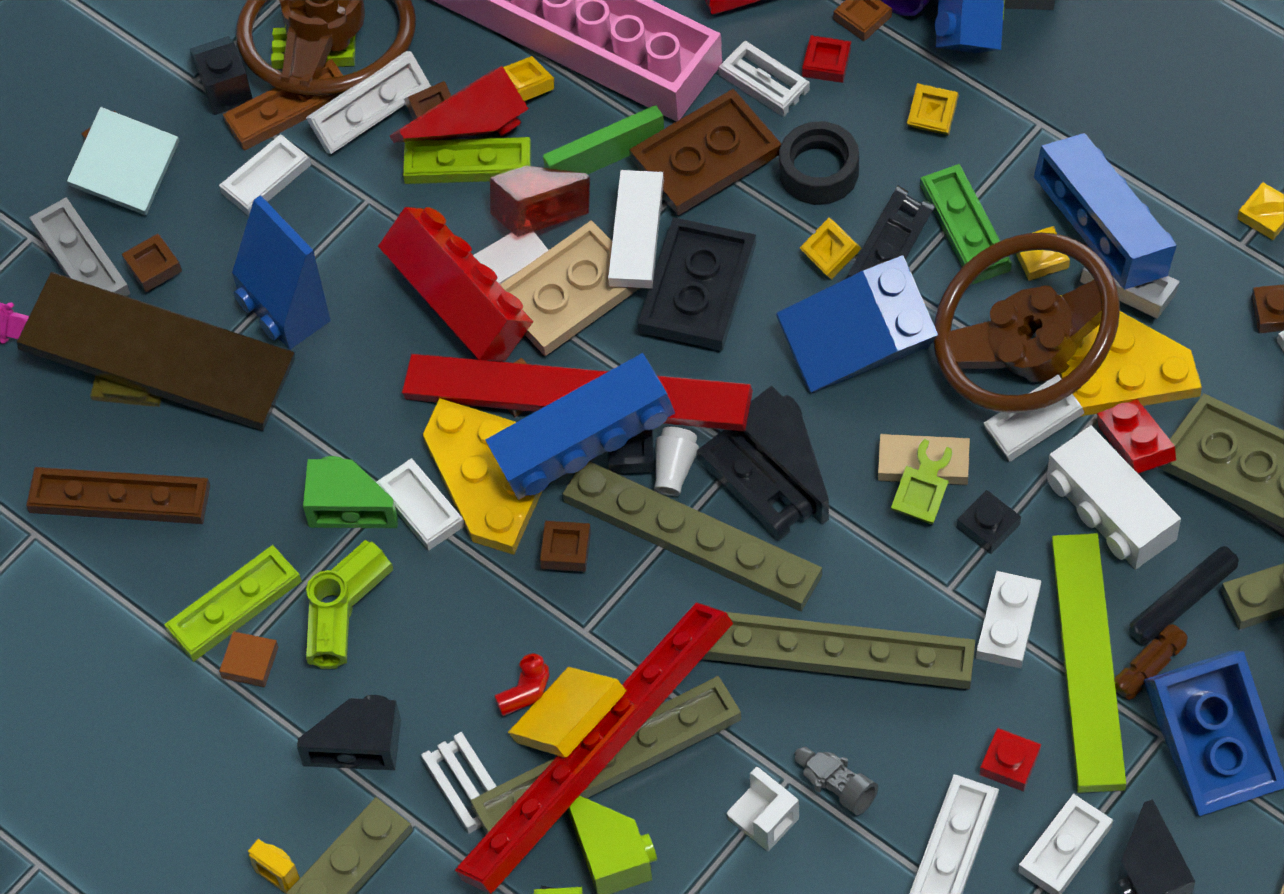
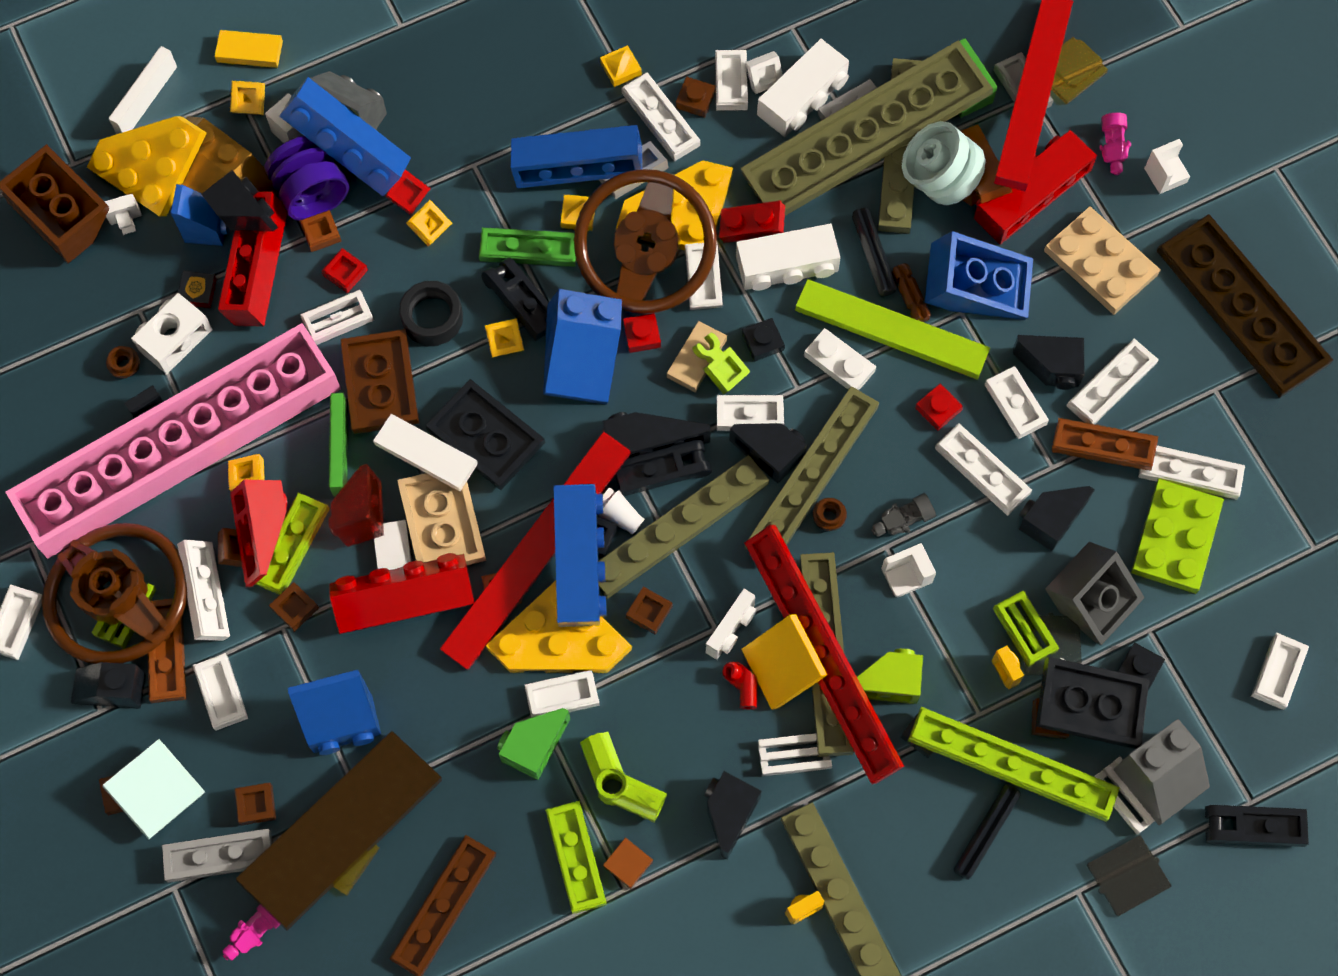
camera: 70 degrees left, 10 degrees up
(392, 193) = (294, 606): none -> reddish brown plate
(592, 638) = (724, 636): none -> white plate
(790, 680) = (834, 506): none -> reddish brown plate
(843, 585) = (770, 446): none -> black slope
(878, 546) = (748, 410): none -> white plate
(921, 388) = (642, 333): none -> red plate
(958, 69) = (408, 192): none -> red plate
(1226, 283) = (660, 116): none -> white tile

